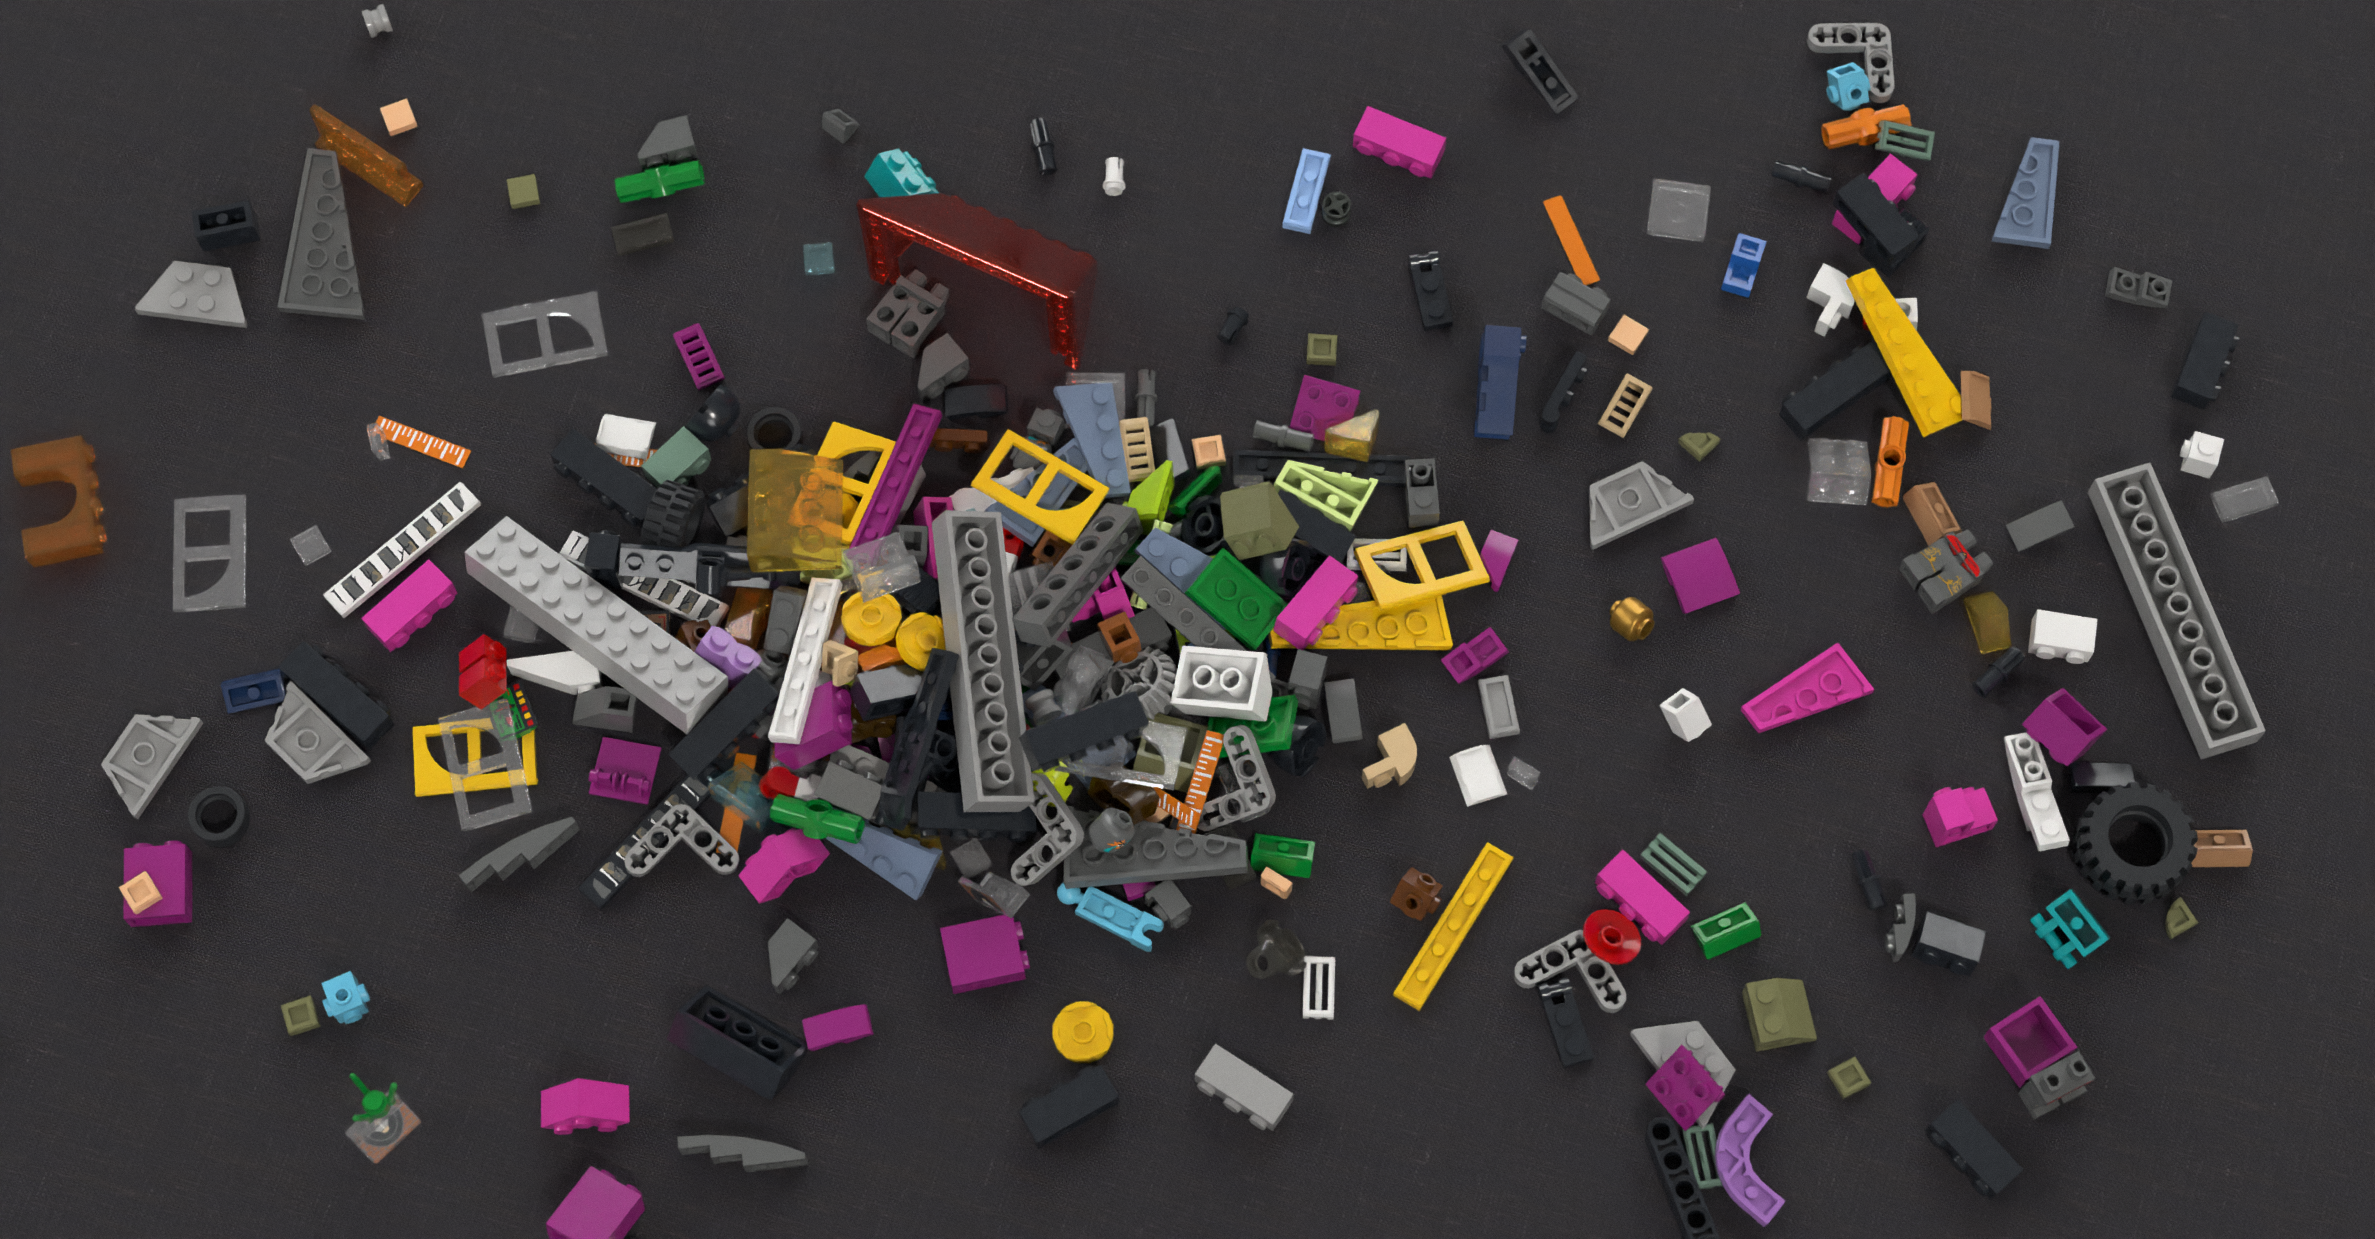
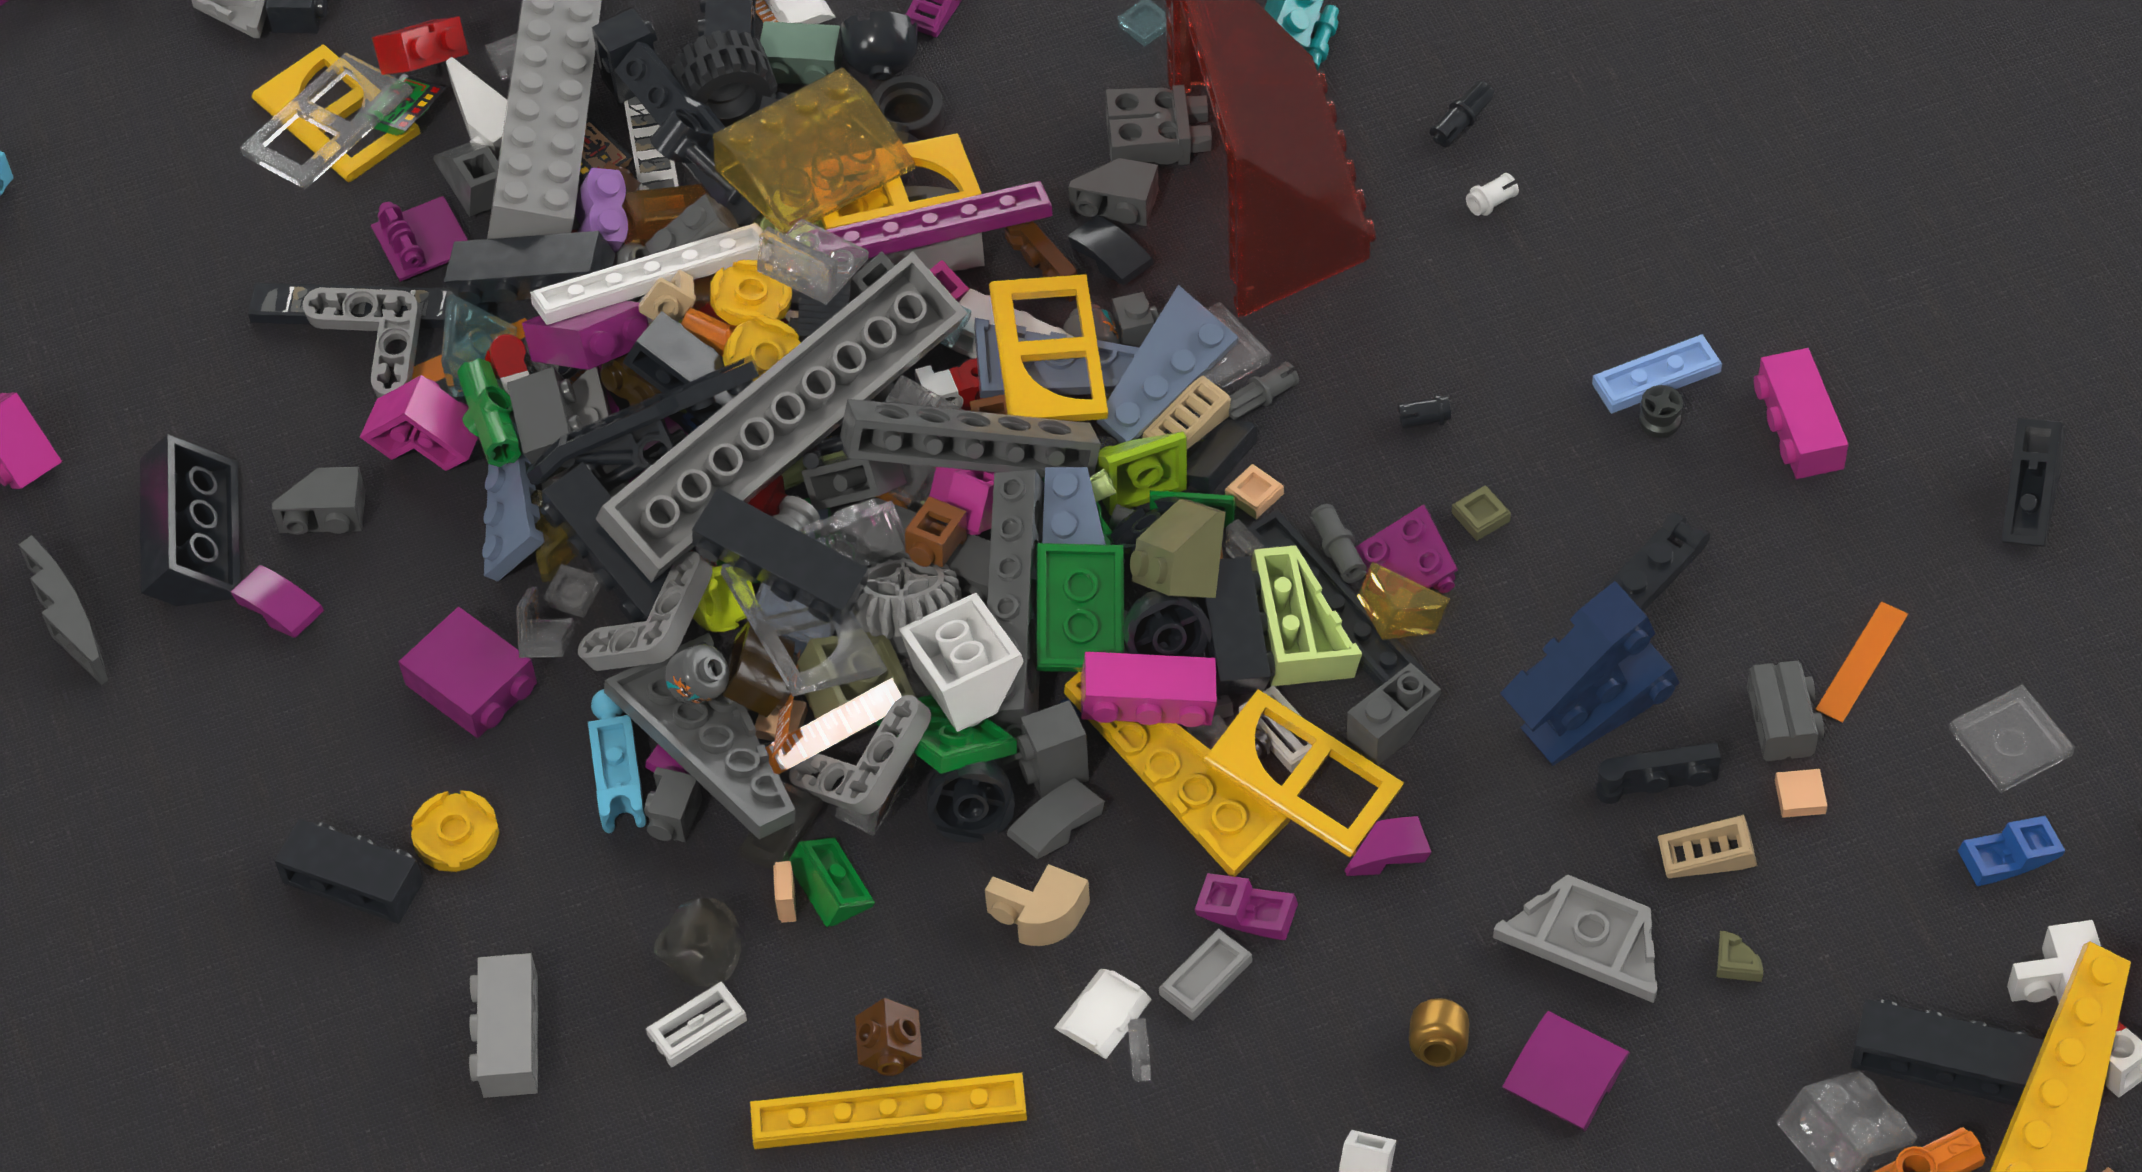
camera: 55 degrees right, 15 degrees down
(529, 847) = (263, 213): dark grey slope -> none

